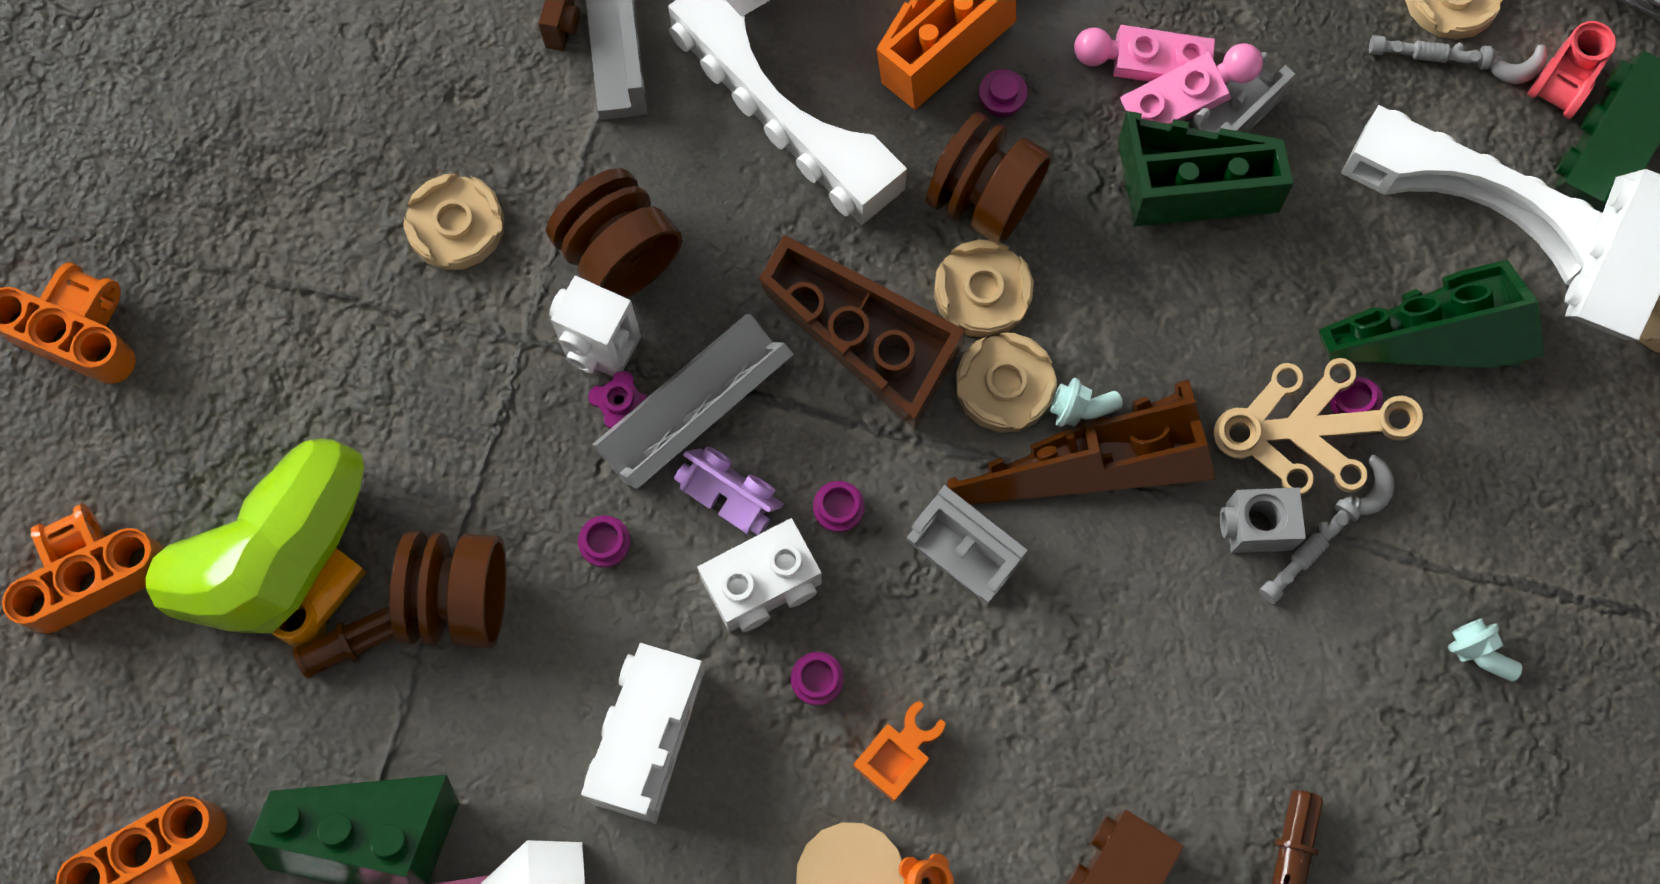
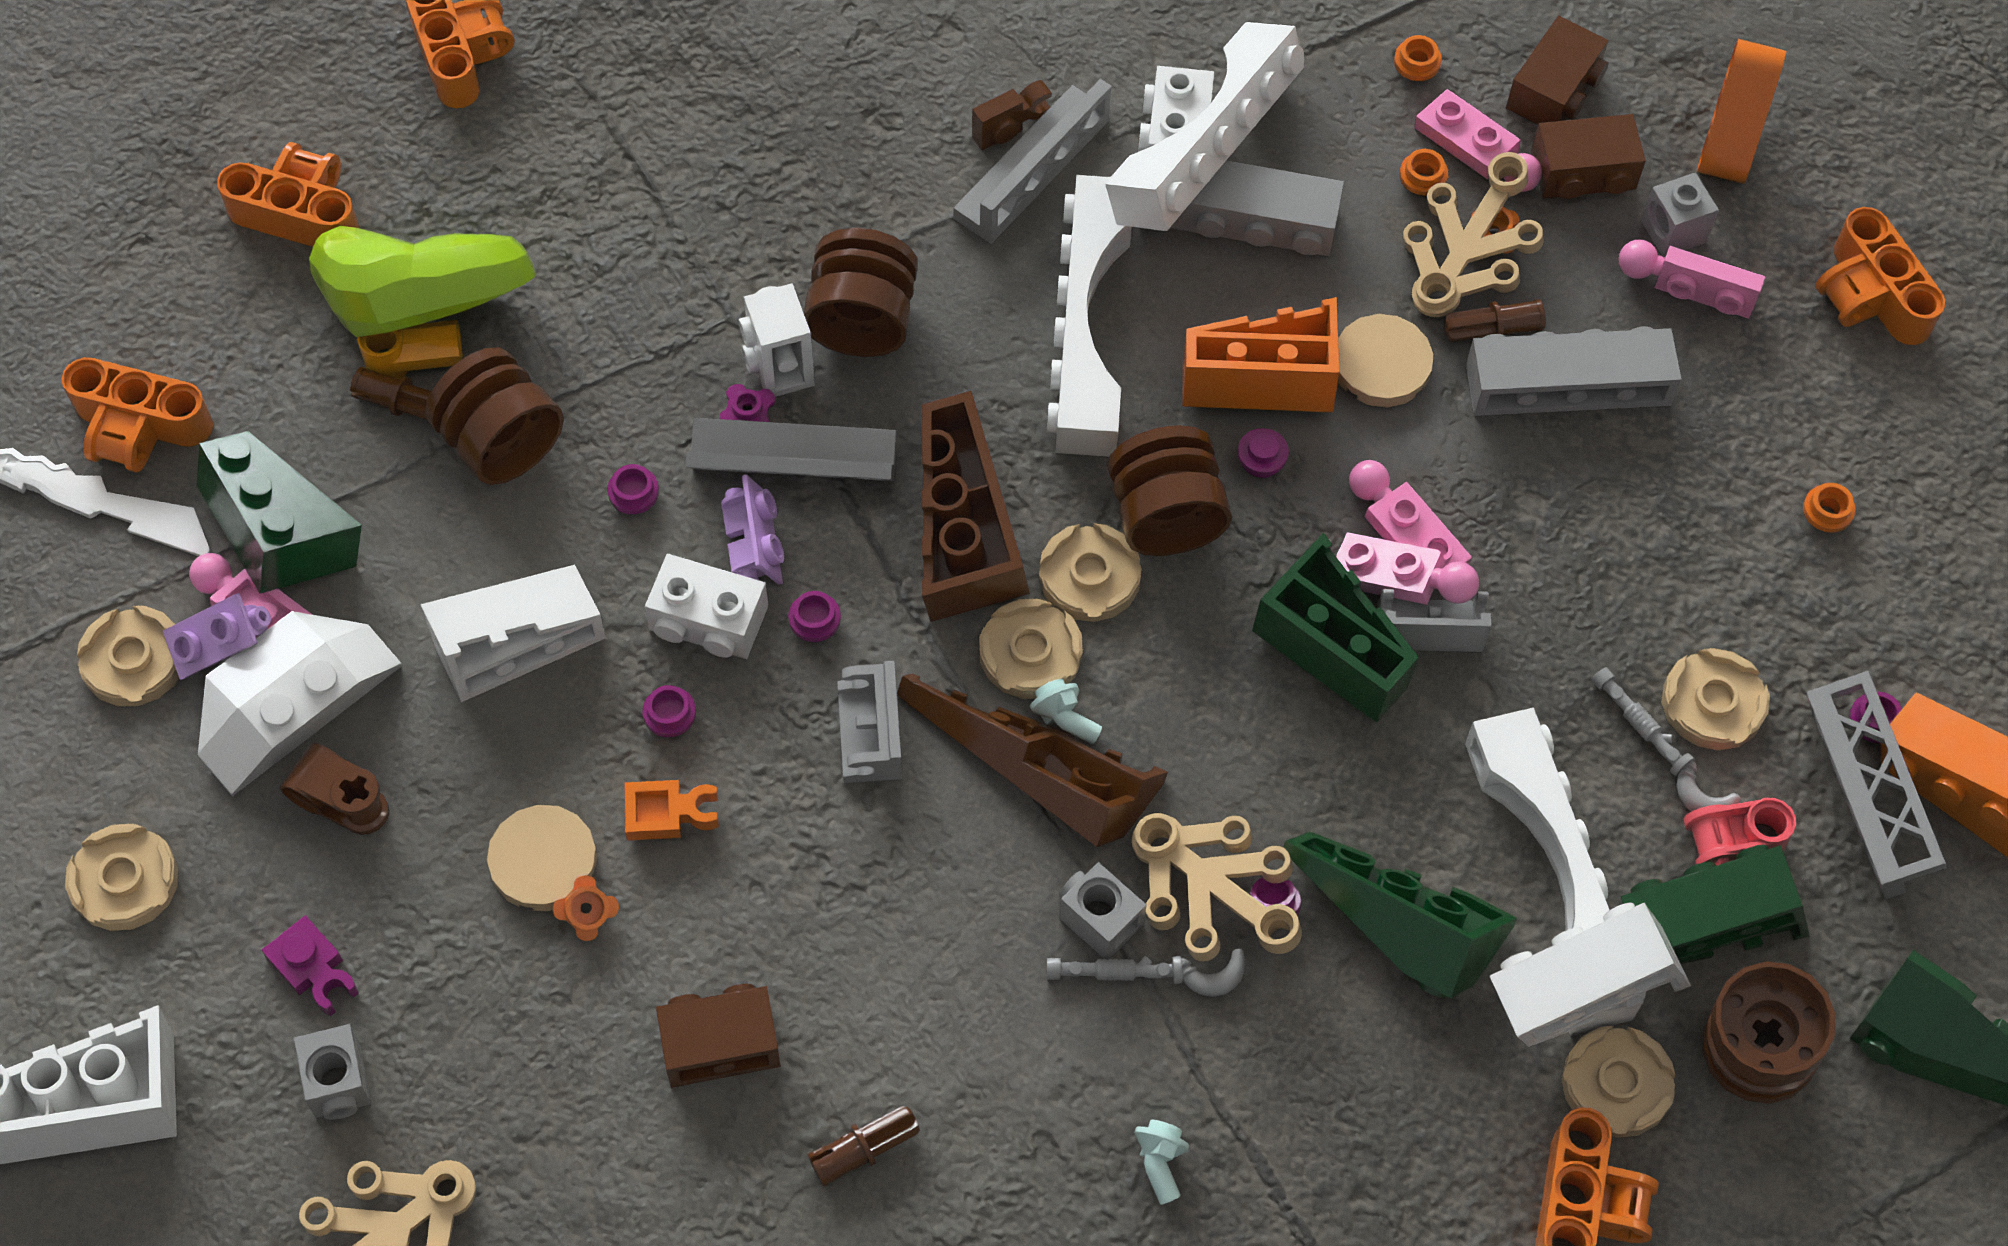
camera: 45 degrees right, 10 degrees down
(454, 221) = (775, 196): tan tile -> none

